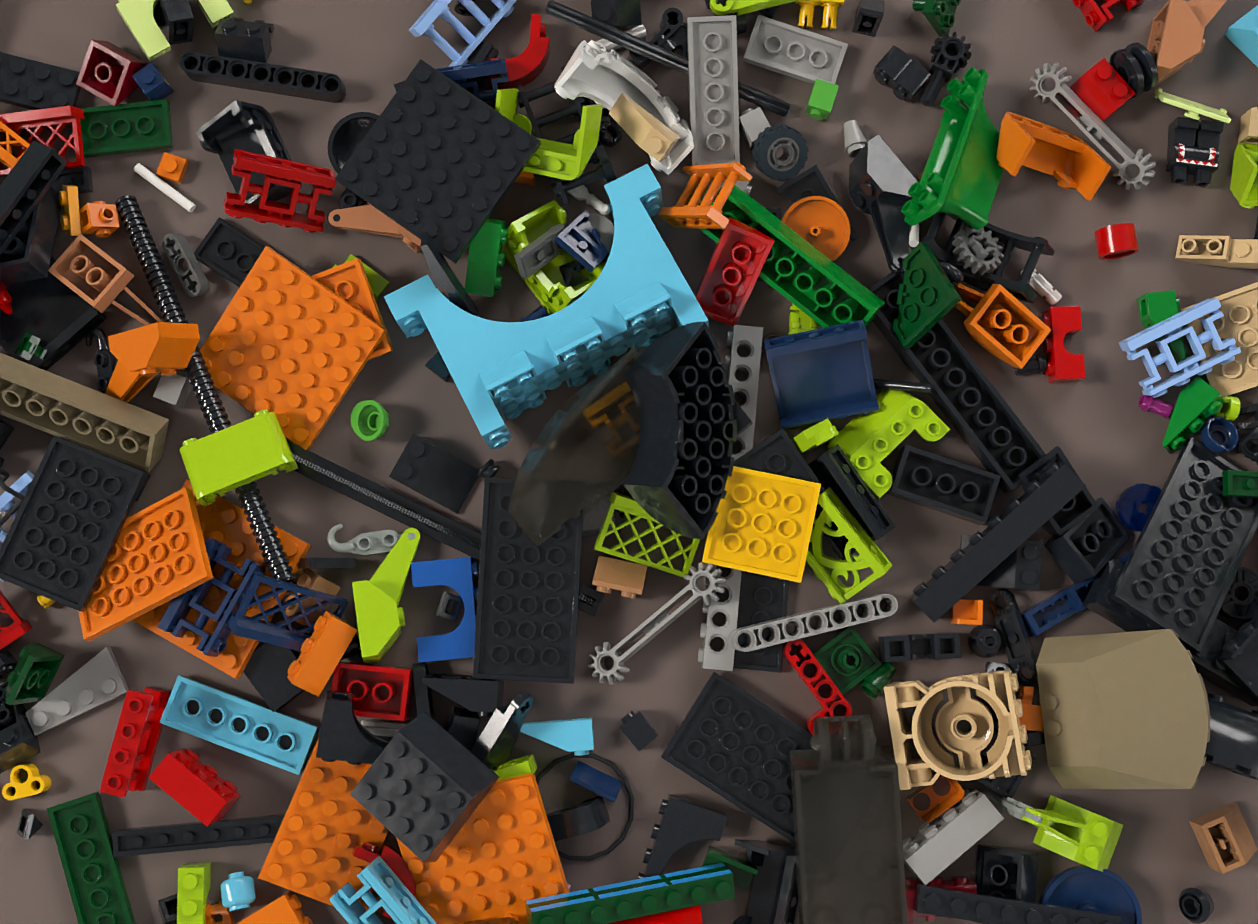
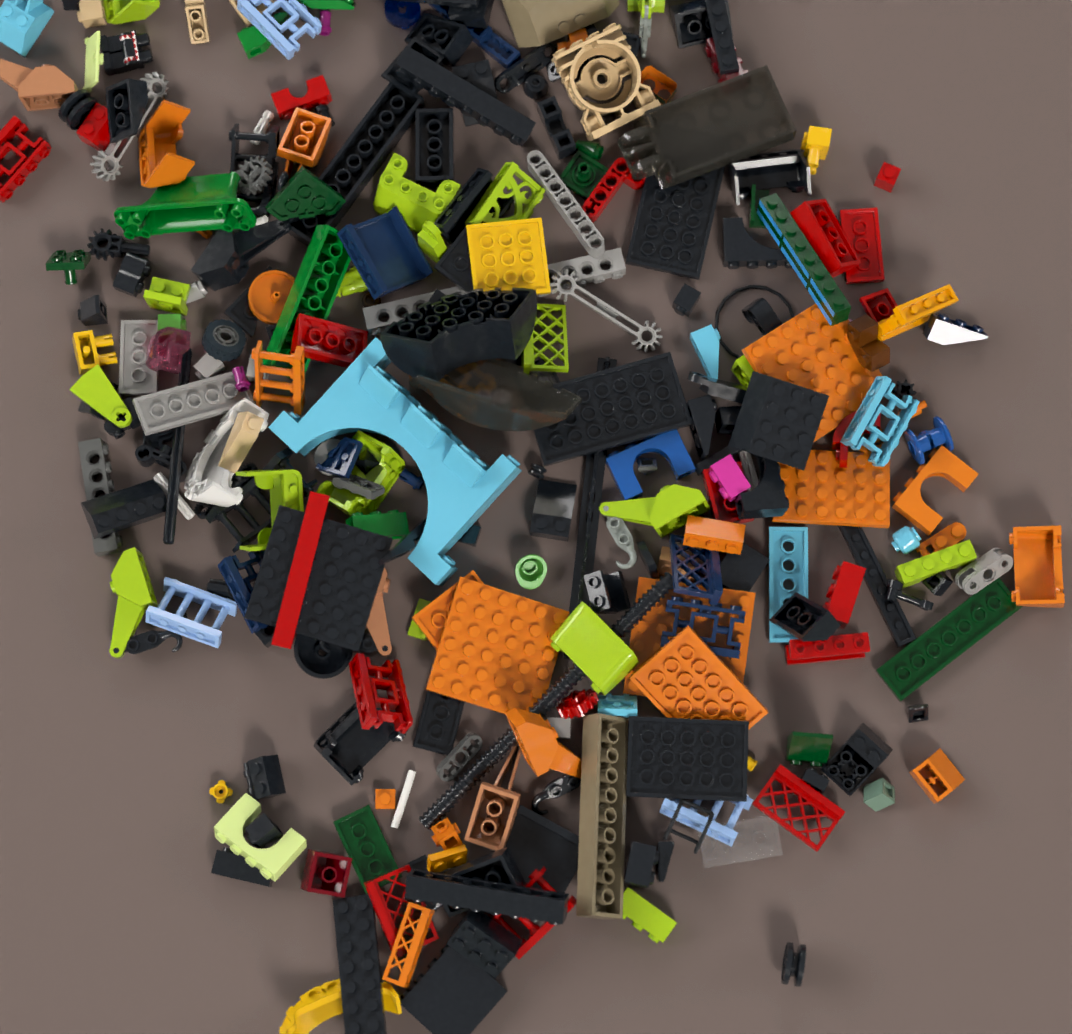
camera: 105 degrees left, 5 degrees down
(27, 788) = (893, 723): yellow piece -> none
(30, 347) = (565, 850): dark green plate -> none
(84, 690) = (805, 708): light grey wing -> none
(152, 82) = (323, 837): dark blue brick -> none
(164, 466) = (618, 705): none -> medium azure plate
(168, 724) = (805, 619): none -> black slope
(176, 852) = (894, 592): none -> black brick
(185, 417) = (577, 703): none -> red gear
(254, 70) = (284, 744): black beam -> none
(305, 499) = (607, 592): none -> black panel
(382, 698) = (729, 478): none -> dark pink brick
(450, 138) = (300, 570): none -> red tile
(532, 61) = (202, 549): red arch -> none
(581, 193) = (305, 466): white piece -> none
(595, 781) = (733, 318): dark blue slope -> none
(619, 576) = (581, 350): medium nougat slope -> none
(720, 156) = (240, 379): none -> magenta pin
(760, 600) = (564, 245): black tile -> none
(789, 81) = (166, 349): none -> clear pink brick
(859, 104) = (167, 296): none -> lime bracket
(903, 386) = (372, 195): black bar -> none
(949, 835) = (679, 65): light grey brick -> none
(967, 612) = (520, 102): orange panel -> none
(1116, 241) = (213, 83): red piece -> none
(1117, 122) = (125, 107): none -> black slope

